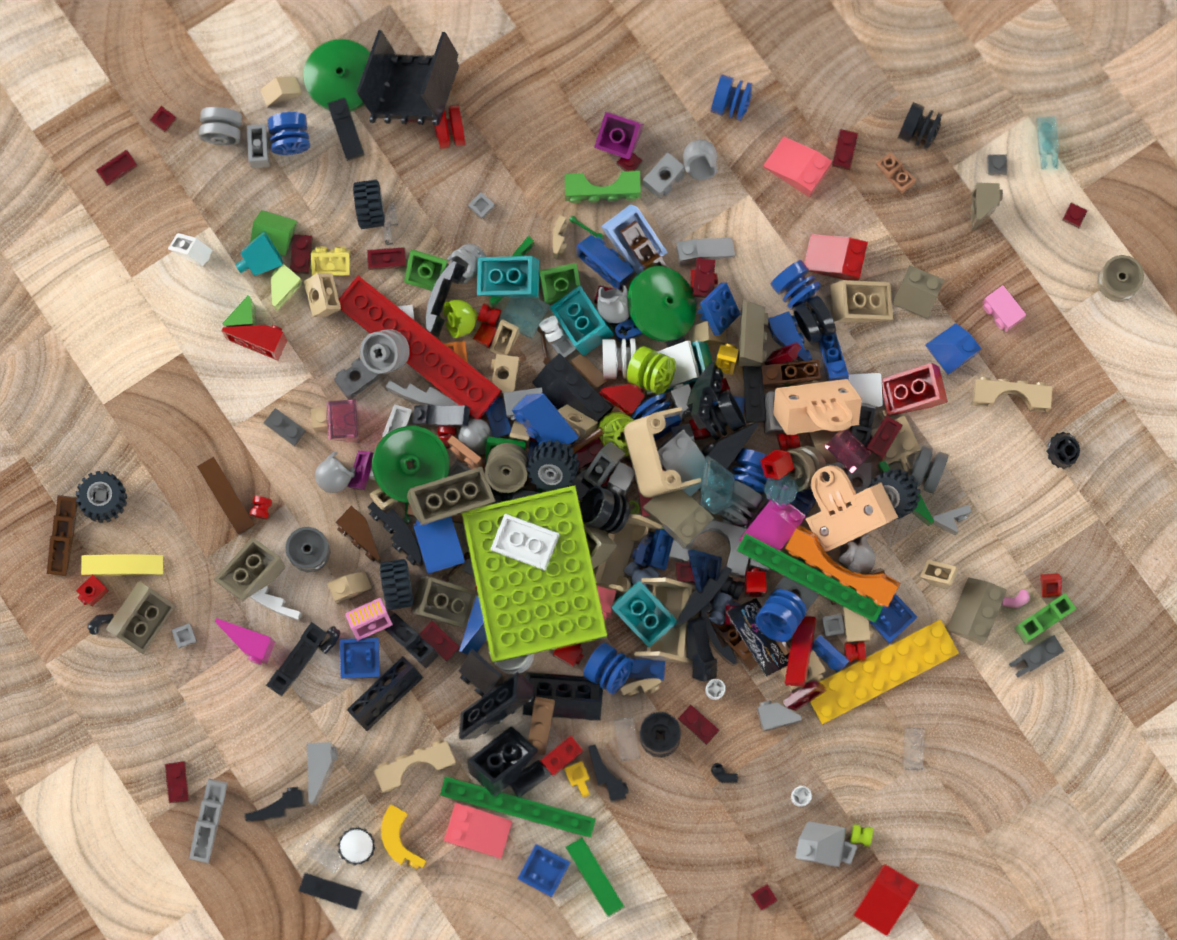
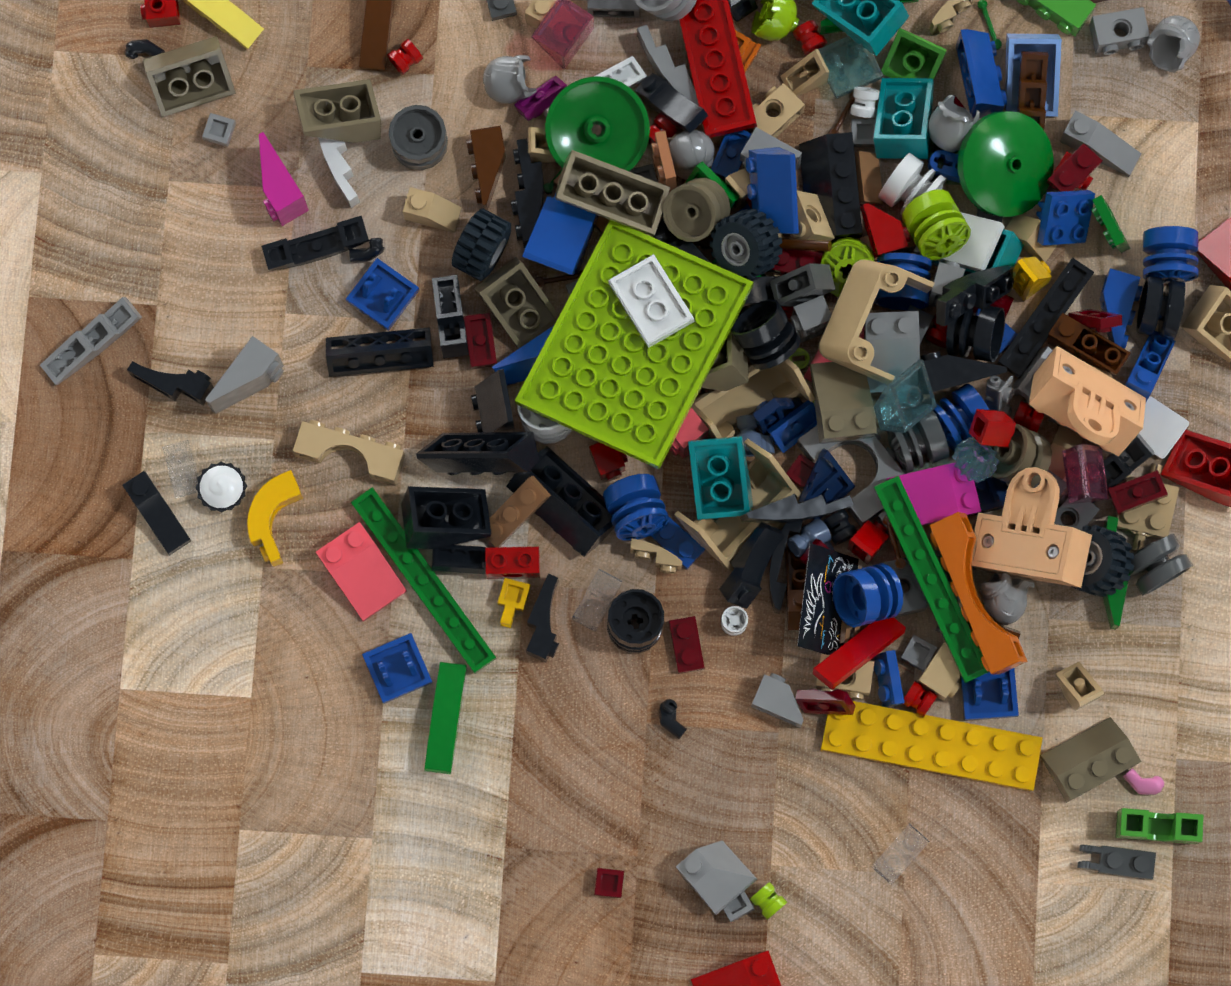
camera: 40 degrees right, 0 degrees up
(177, 782) = (90, 276): dark red plate -> none
(368, 619) = (423, 259): bright pink brick -> none
(485, 335) = (788, 56): red slope -> none
(740, 291) = (1105, 217): none -> green plate
(752, 335) = (1078, 271): dark tan slope -> none
(763, 441) = (999, 394): none -> light grey hinge
(784, 582) = (899, 563): none -> reddish brown hinge
(804, 796) = (735, 803): white wheel -> none
(946, 519) = (1134, 635): light grey slope -> none
(1051, 585) = (1196, 797): red slope -> none

